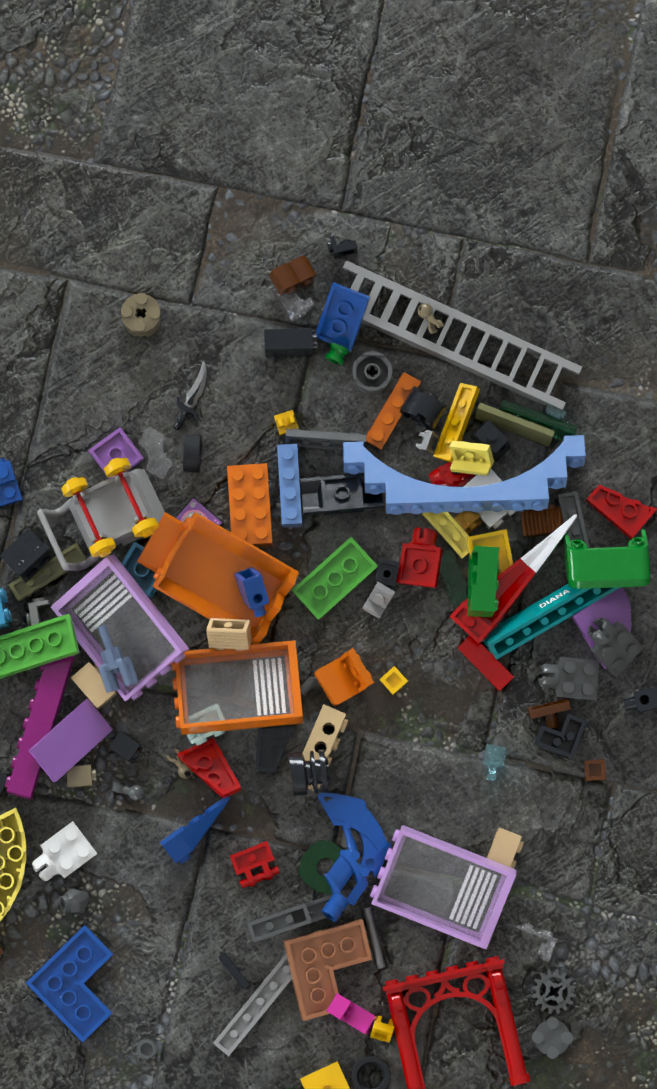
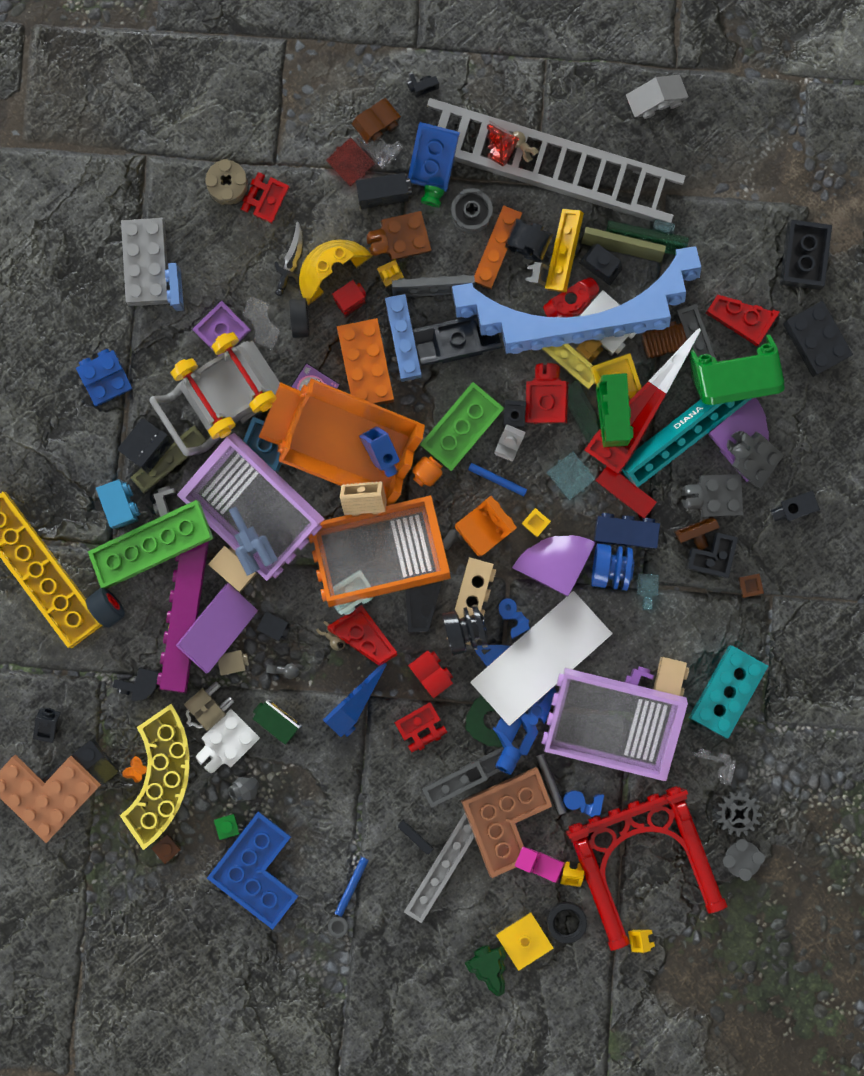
camera: 15 degrees left, 5 degrees up
(48, 817) = (205, 708): none -> dark tan piece
(52, 380) = (145, 261): none -> light grey brick
(52, 935) = (226, 826): none -> green plate
(76, 415) = (174, 280): none -> medium blue plate
(114, 838) = (276, 721): none -> dark green piece
(165, 1011) = (351, 886): none -> blue bar
(181, 336) = (270, 200): none -> red plate
(219, 402) = (320, 261): none -> yellow cone
(243, 440) = (349, 297): none -> red brick
(262, 311) = (350, 162): none -> clear red piece
(271, 813) = (431, 674): none -> red brick
(295, 617) = (427, 471): none -> orange head
(300, 389) = (400, 237): none -> dark orange plate
(355, 763) = (507, 611): none -> blue leg
(362, 634) = (497, 479): none -> blue bar
(375, 813) = (537, 658): none -> white sticker
(396, 956) = (575, 799): none -> blue leg
(408, 312) = (501, 143): none -> clear red slope
(408, 721) = (556, 561): none -> medium lavender brick
(434, 640) = (571, 475): none -> clear light blue piece
(461, 733) = (612, 567): none -> blue wheel
(471, 458) = (585, 285): light yellow bracket -> none
(471, 841) = (636, 674): none -> medium lavender bracket
(480, 701) = (626, 531): none -> dark blue brick
(566, 286) = (656, 95): none -> light grey brick
(573, 870) = (714, 691): none -> teal brick

